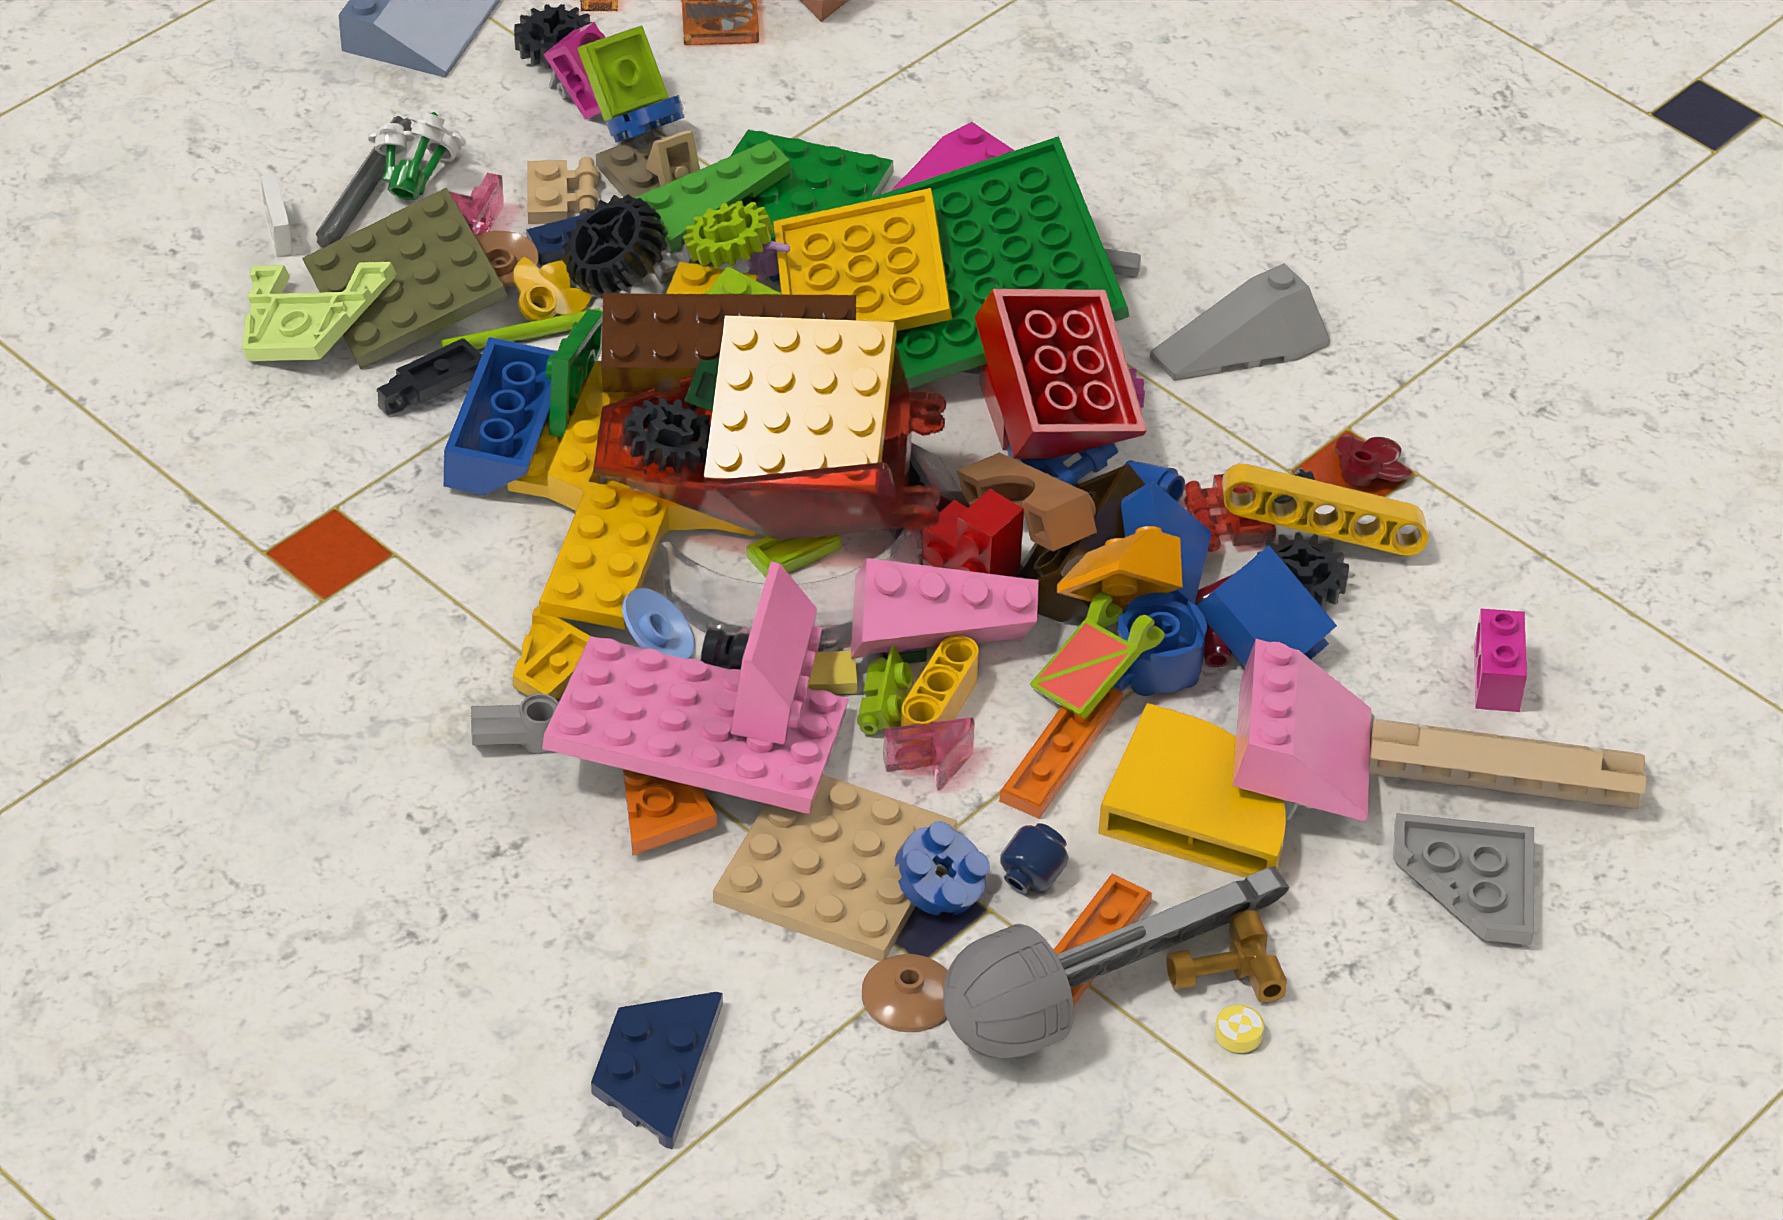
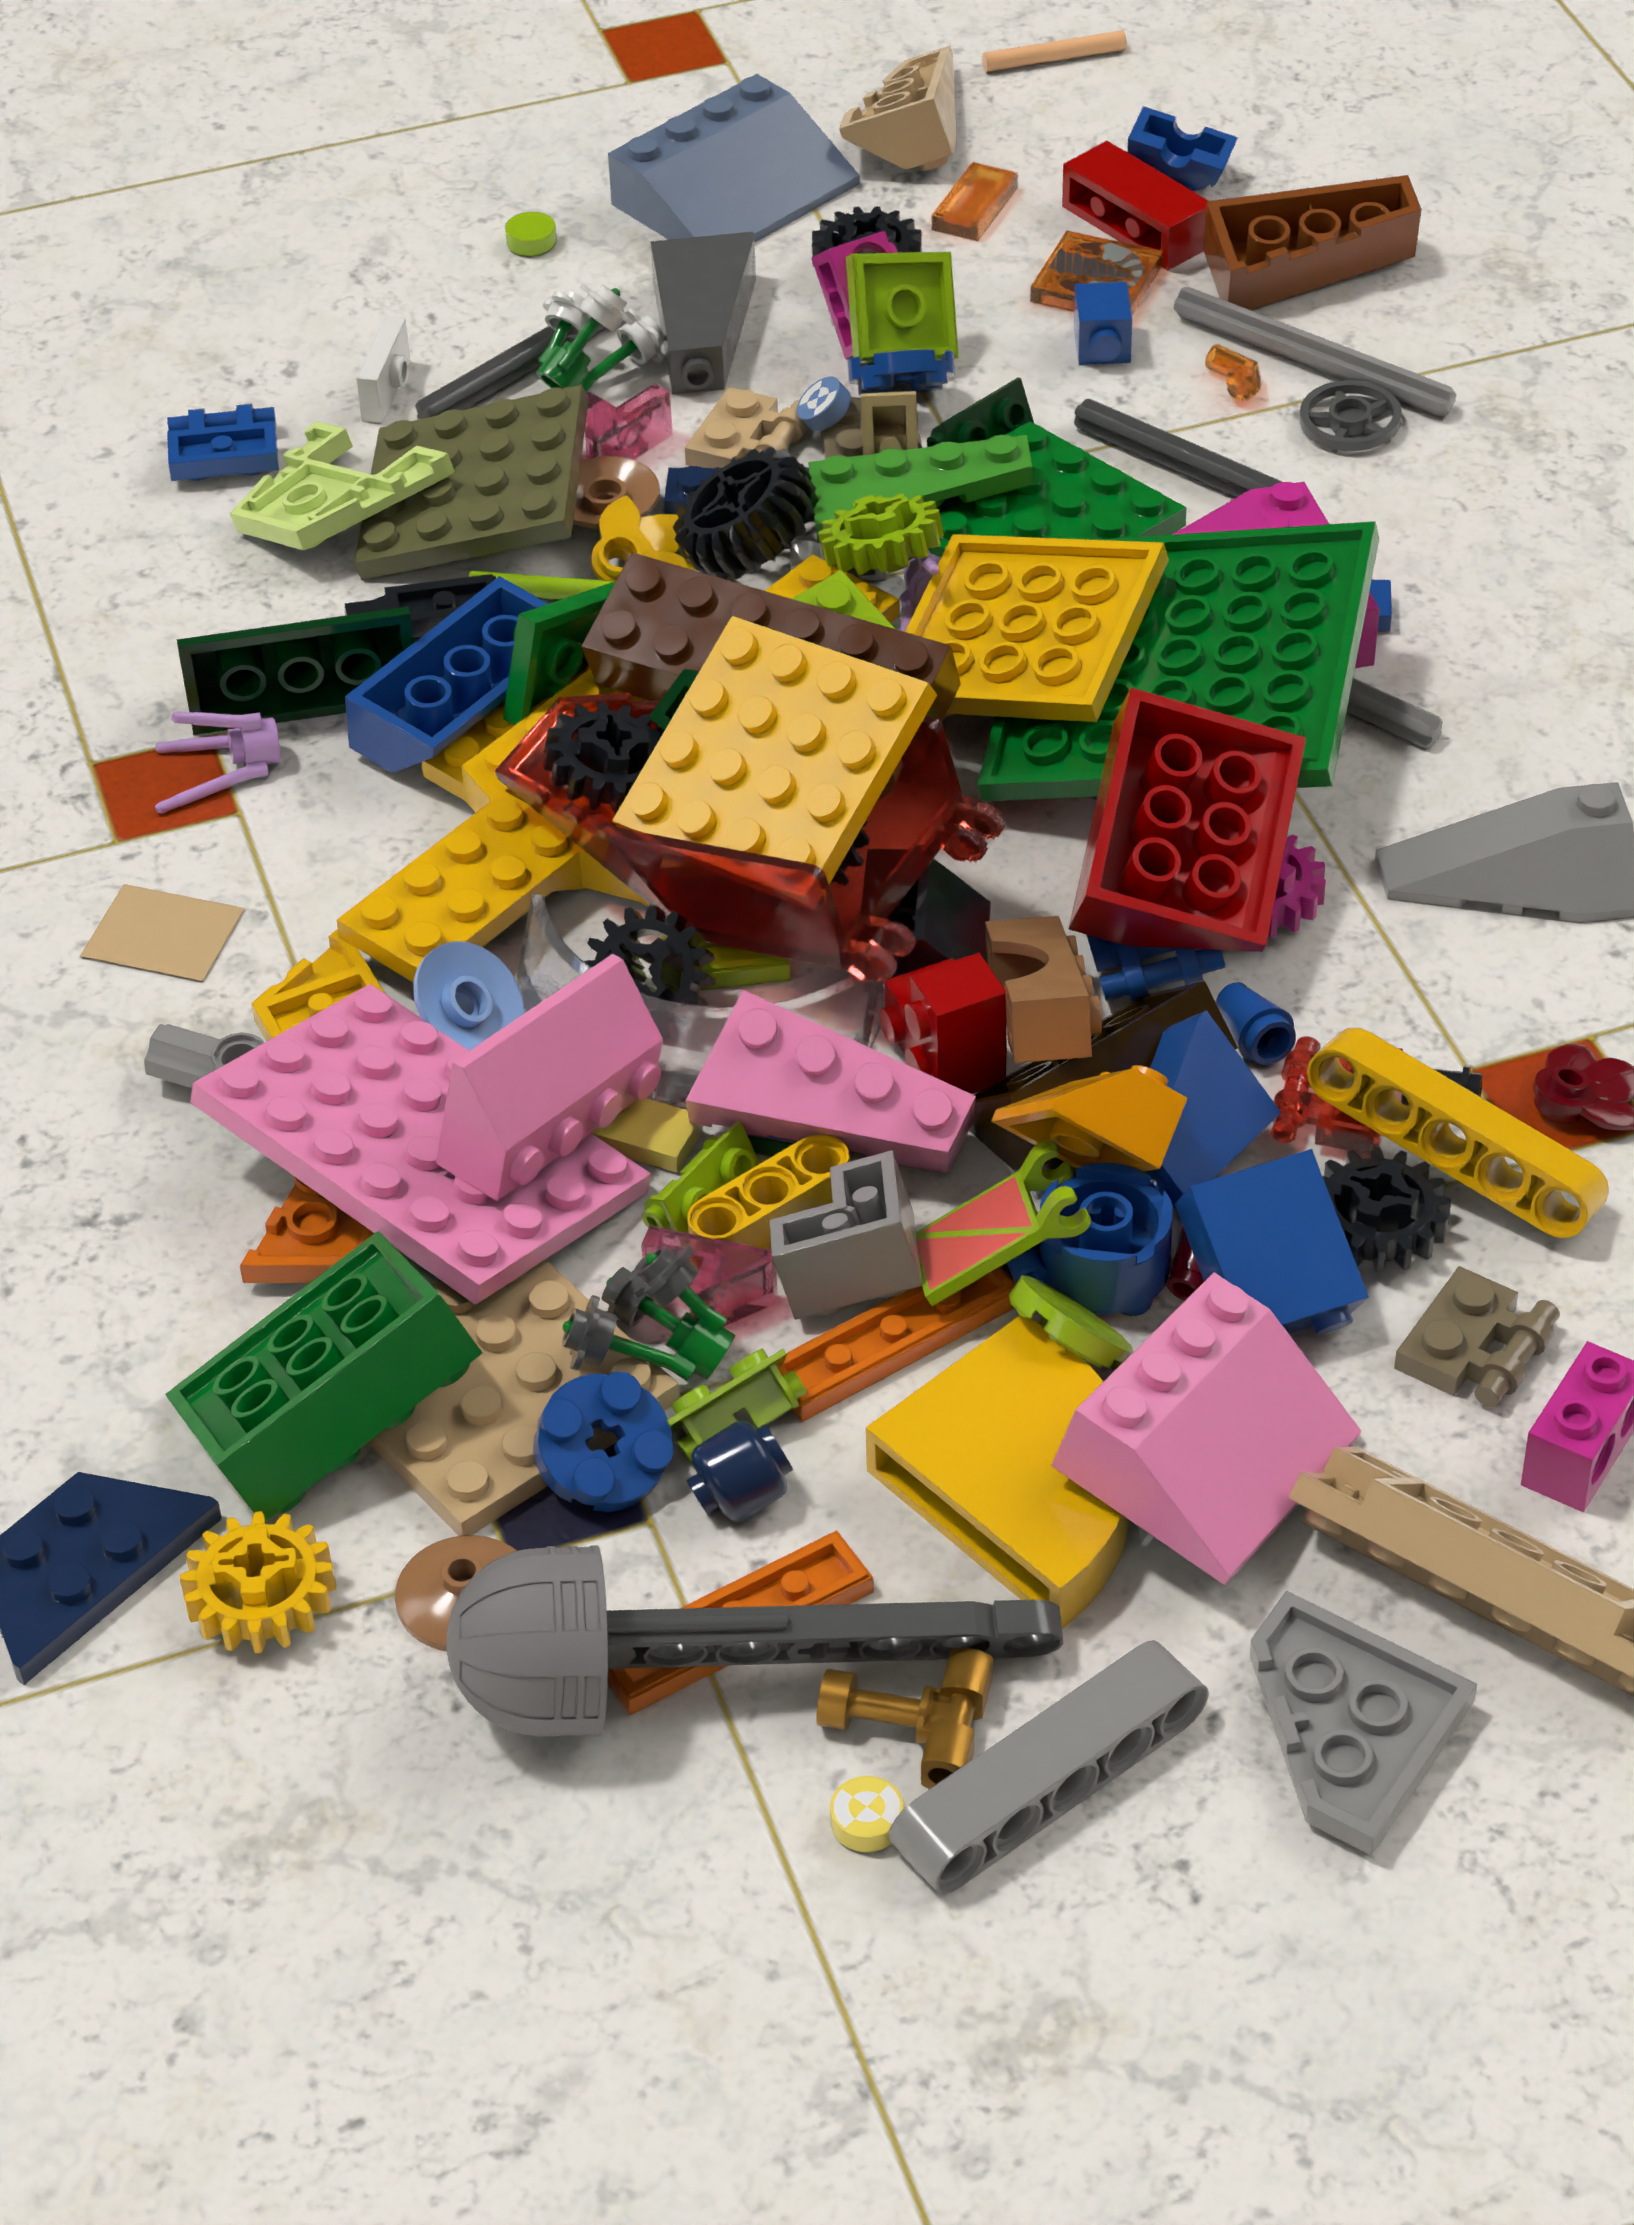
camera: 30 degrees right, 0 degrees up
(195, 300) = (222, 443): none -> blue plate
(303, 87) = (530, 233): none -> lime tile
(376, 503) = (250, 742): none -> lavender plant
(378, 445) = (290, 667): none -> dark green slope
(402, 650) = (162, 932): none -> tan sticker
(469, 101) = (702, 305): none -> dark grey slope
(608, 155) = (823, 403): none -> medium blue tile
(720, 136) = (989, 417): none -> dark green hinge
(744, 888) = (324, 1376): none -> green slope
(751, 47) = (1102, 323): none -> blue brick
(777, 552) = (666, 956): none -> black gear
(786, 1030) = (258, 1582): none -> yellow gear
(858, 125) = (1169, 449): none -> dark grey axle
(860, 57) = (1241, 372): none -> clear orange arm
(897, 30) = (1313, 350): none -> light grey axle
(930, 752) = (631, 1295): none -> plant
(949, 68) = (1350, 416): none -> dark grey wheel
(1012, 805) = (755, 1387): none -> lime hinge
(1016, 697) = (852, 1247): none -> light grey brick
(1175, 701) = (1070, 1323): none -> lime tile
(1327, 962) = (1047, 1766): none -> light grey beam
(1387, 631) = (1460, 1327): none -> dark tan plate

